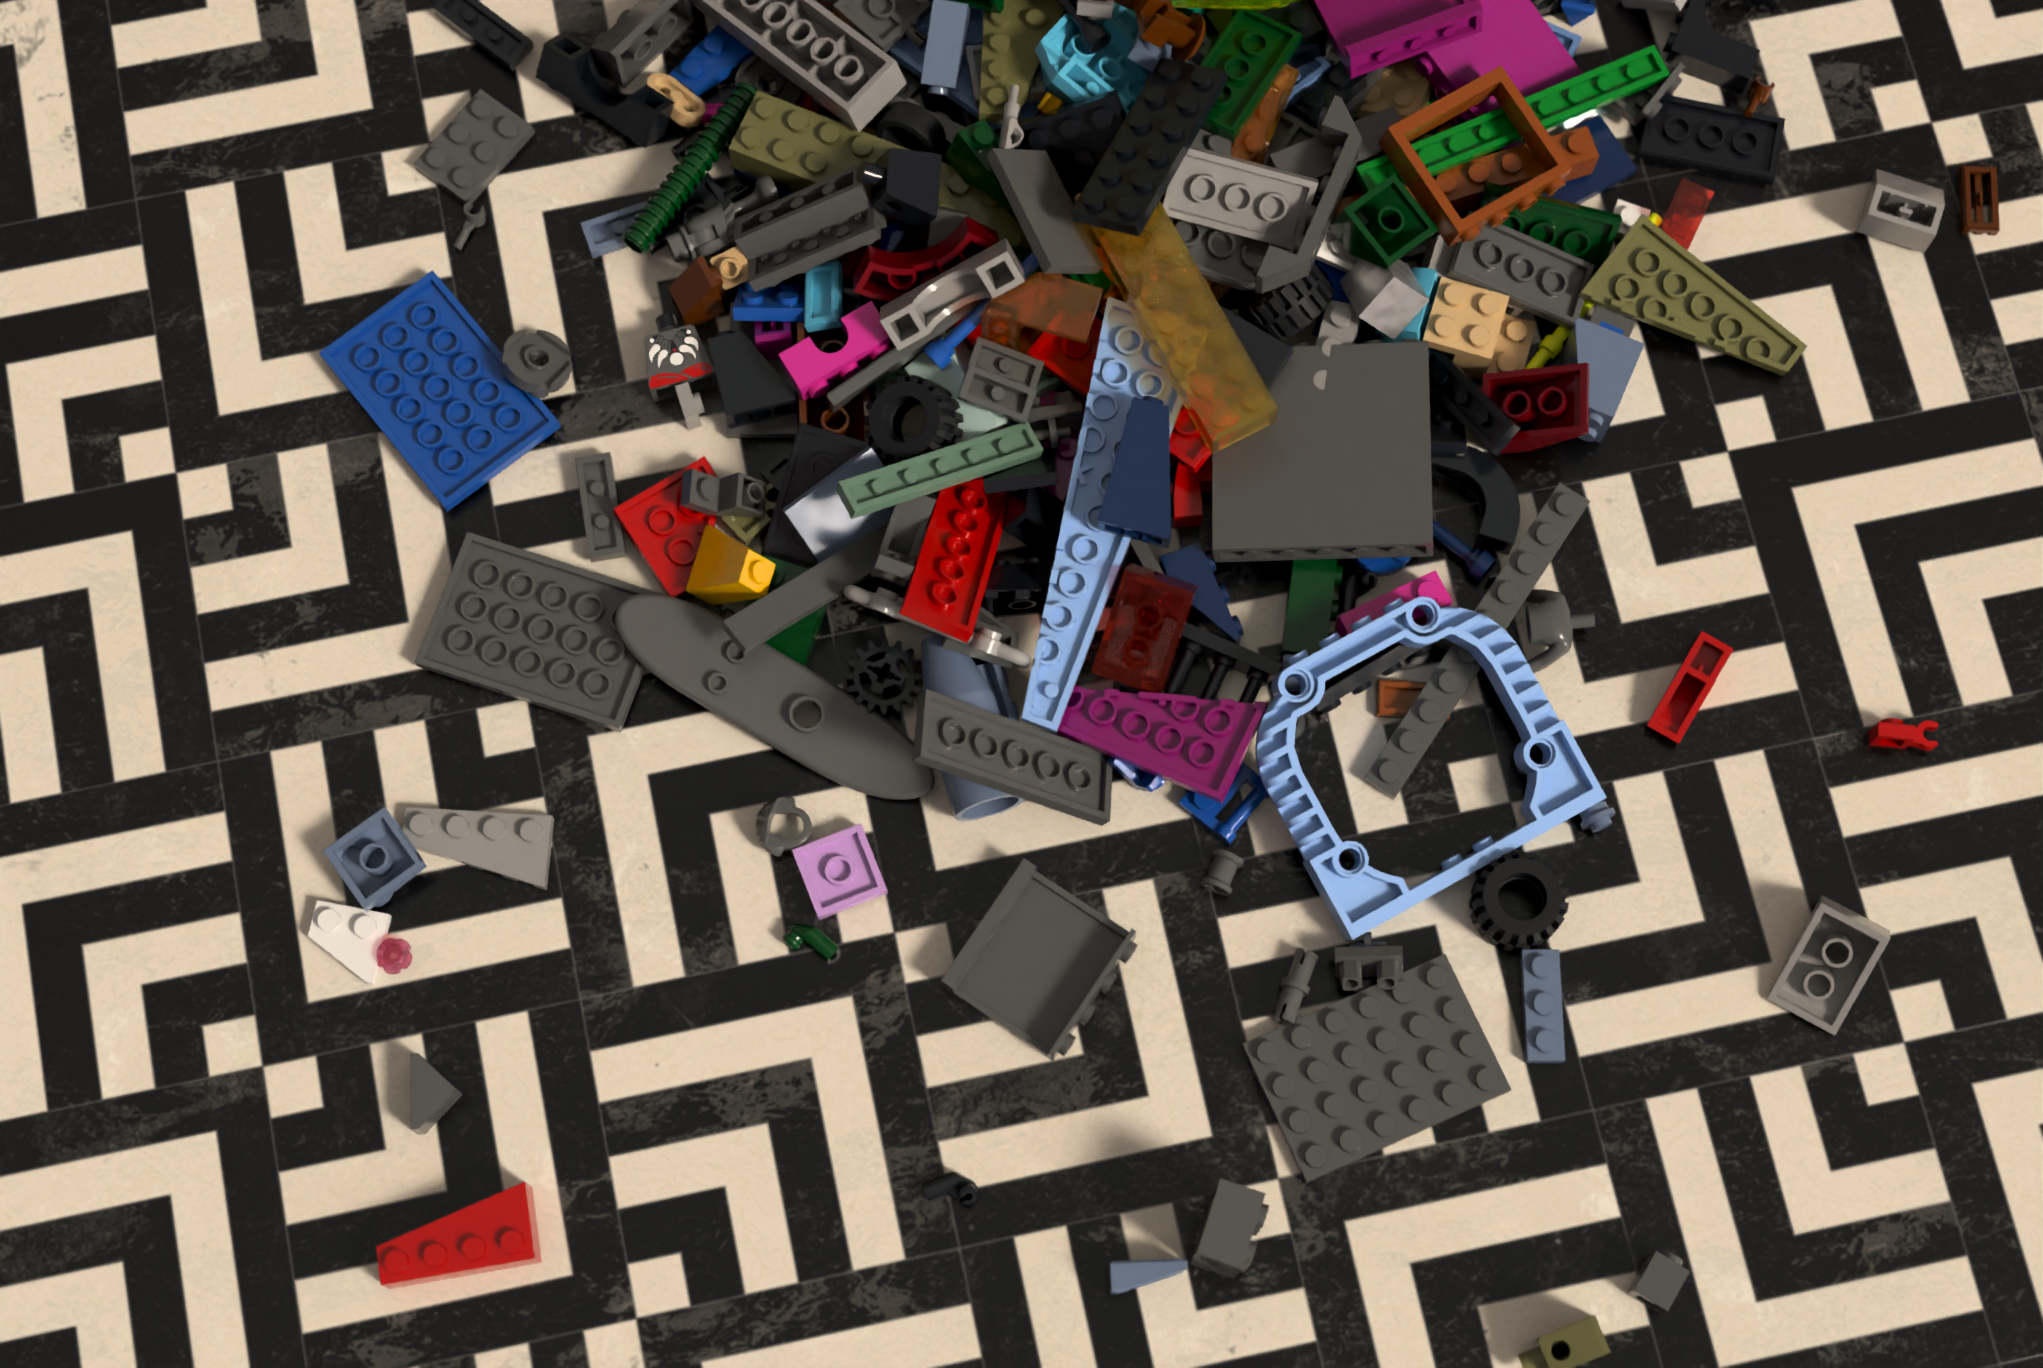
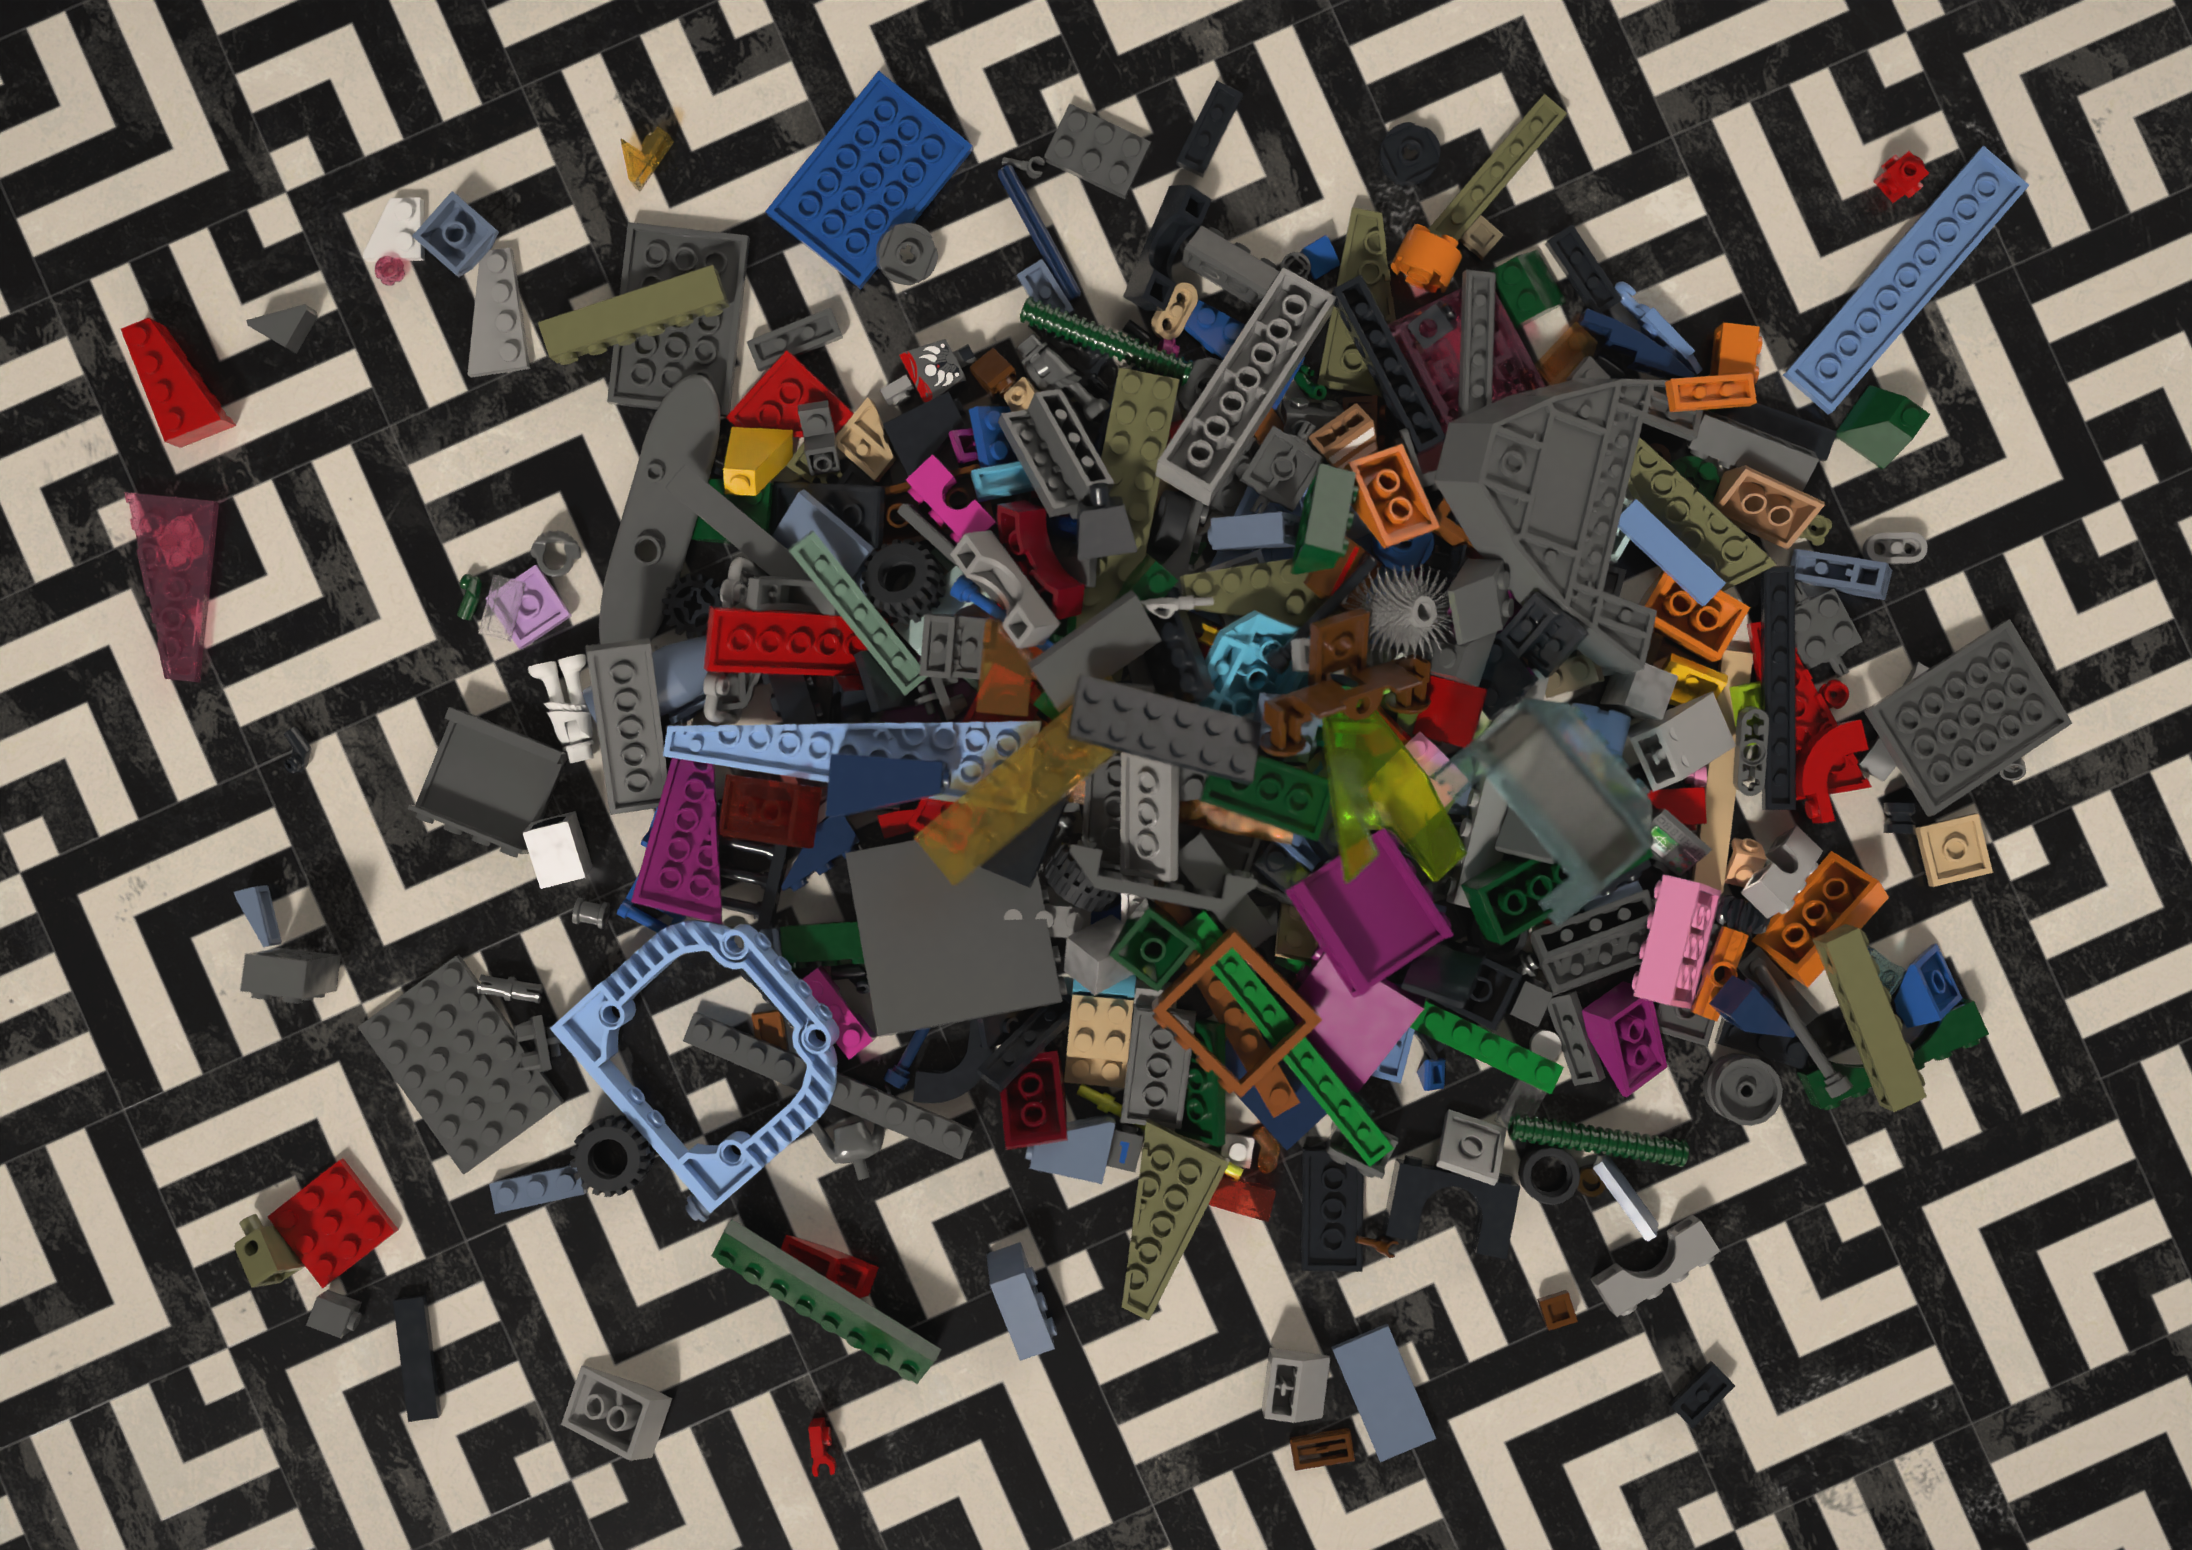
camera: 80 degrees right, 15 degrees up
(345, 635) = (643, 163): none -> clear yellow slope
(527, 669) = (634, 315): none -> olive brick
(543, 225) = (1039, 232): none -> dark blue axle
(680, 1289) = (176, 570): none -> clear pink wing
(740, 447) = (867, 442): none -> tan wing
(835, 895) = (502, 608): none -> clear tile
(985, 848) = (572, 719): none -> white piece
(1139, 887) = (557, 849): none -> flat silver piece
(1544, 1266) = (332, 1223): none -> red plate
(1634, 188) = (1269, 1150): none -> clear orange arm
(1728, 1195) = (417, 1358): none -> black tile
(1732, 690) = (825, 1302): none -> dark green plate
(1764, 474) = (1020, 1302): none -> sand blue wedge
(1923, 124) = (1383, 1392): none -> sand blue tile

